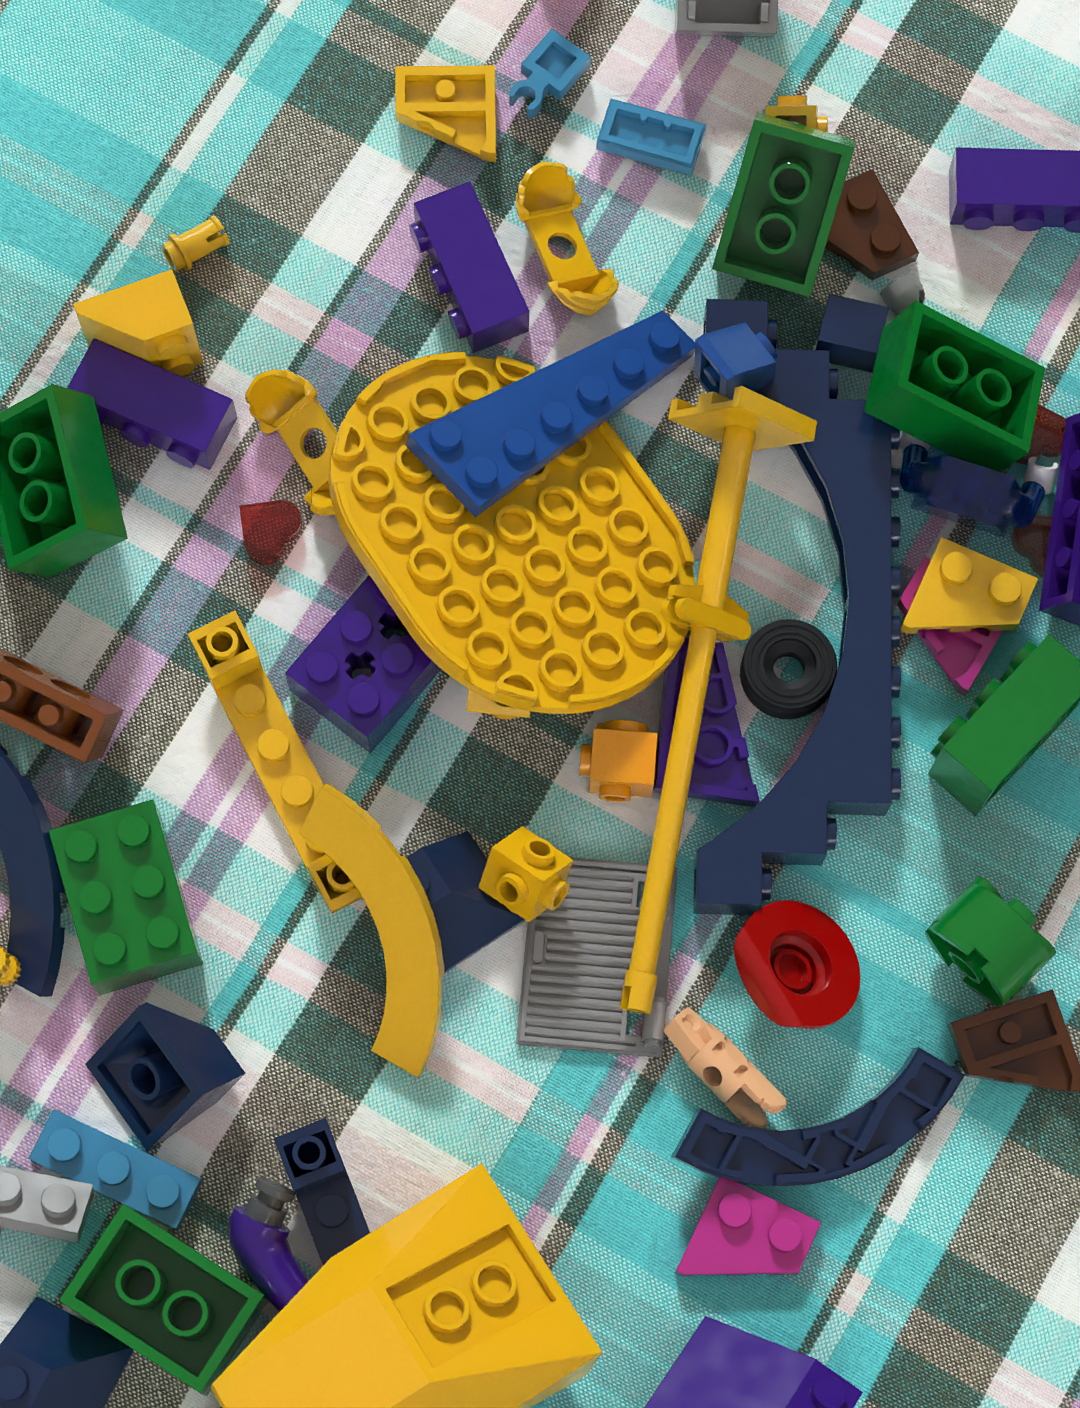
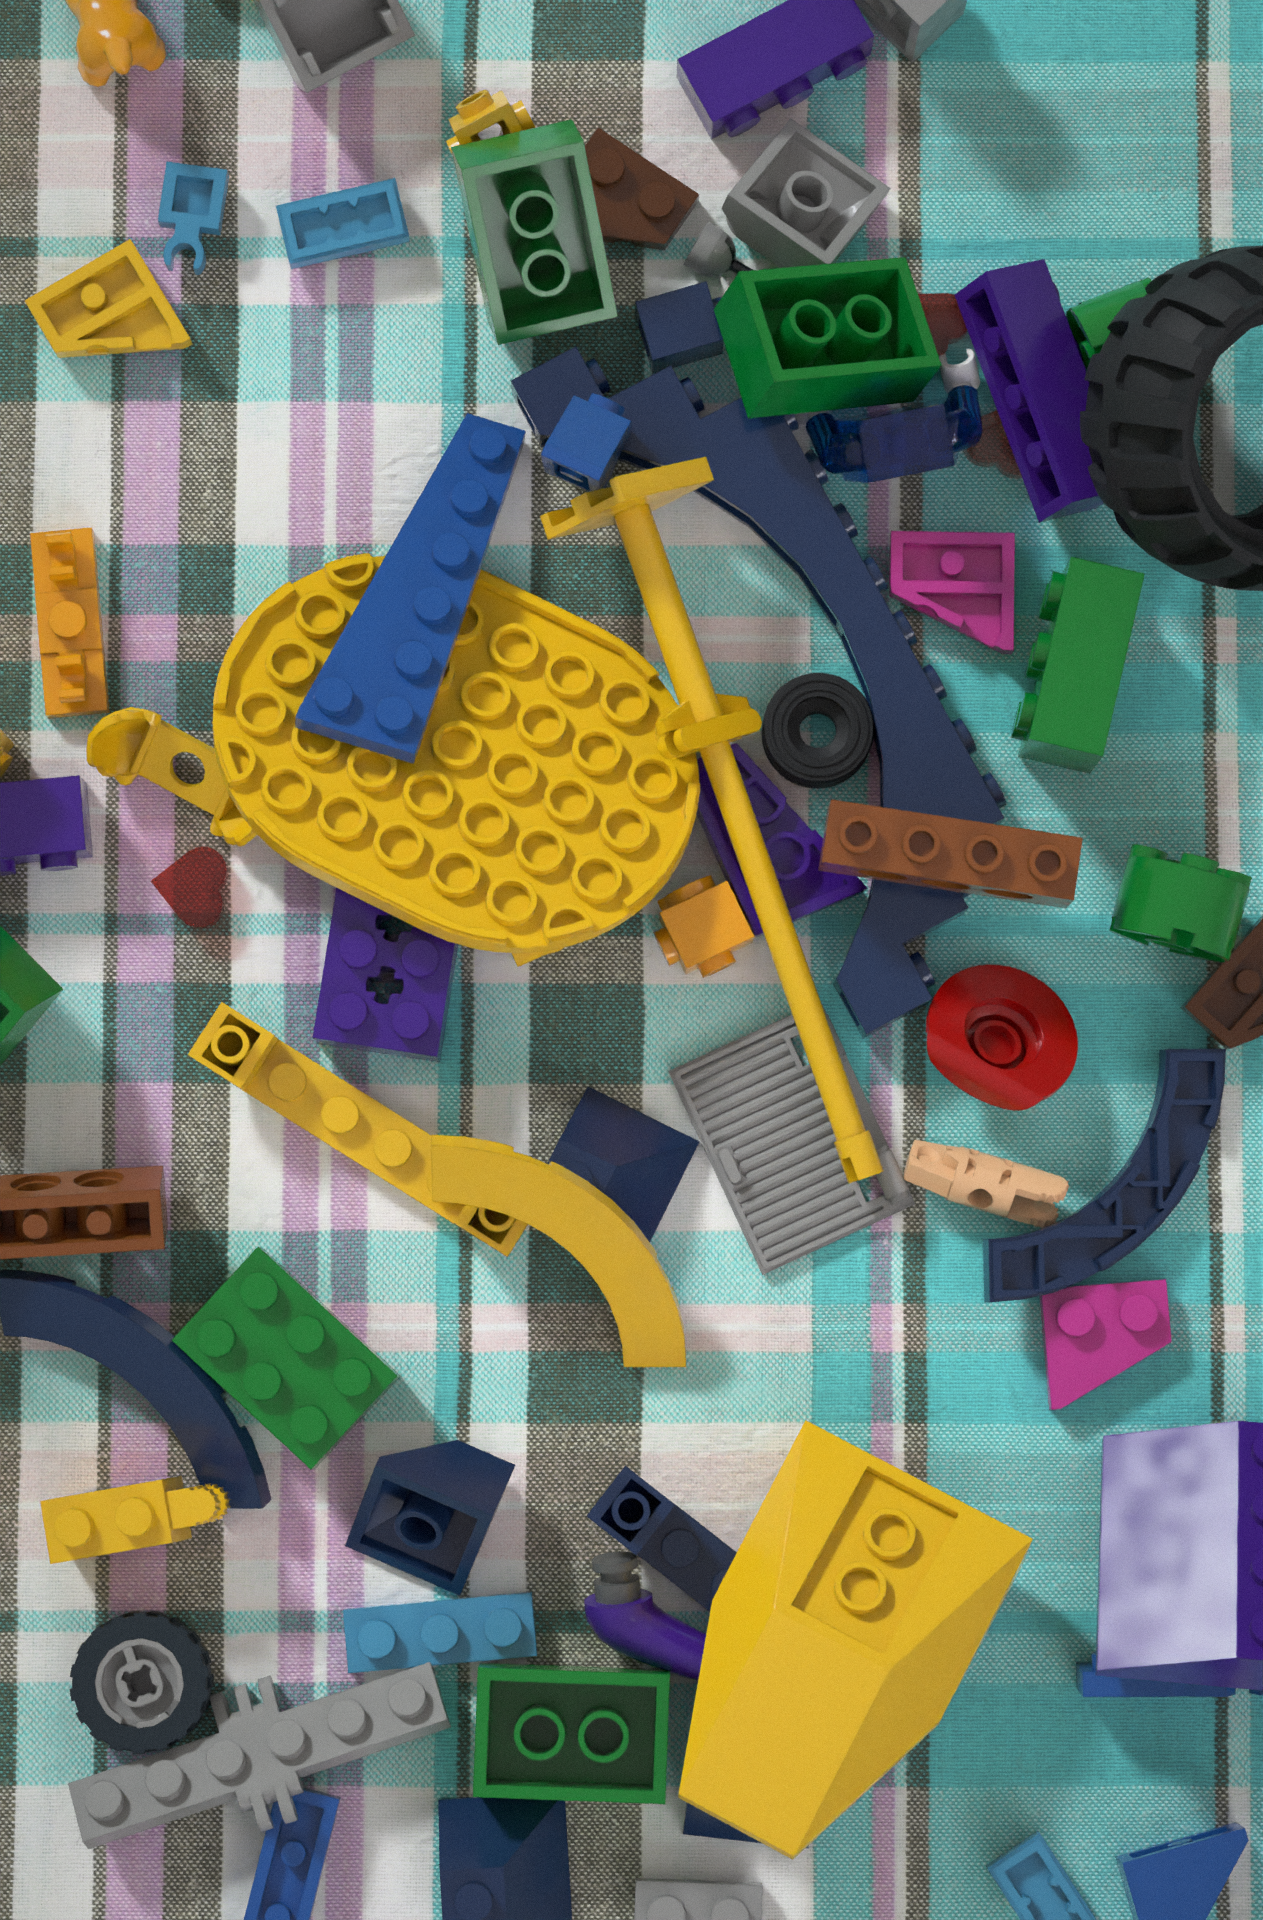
camera: 30 degrees left, 10 degrees up
(293, 300) = (69, 623): none -> light orange plate
(469, 268) = (236, 483): dark purple brick -> none
(526, 874) = (679, 1102): yellow brick -> none
(546, 206) = (279, 370): yellow piece -> none
(834, 801) = (950, 854): none -> dark orange brick
(968, 592) = (957, 547): yellow wing -> none
(992, 291) = (802, 200): none -> light grey slope

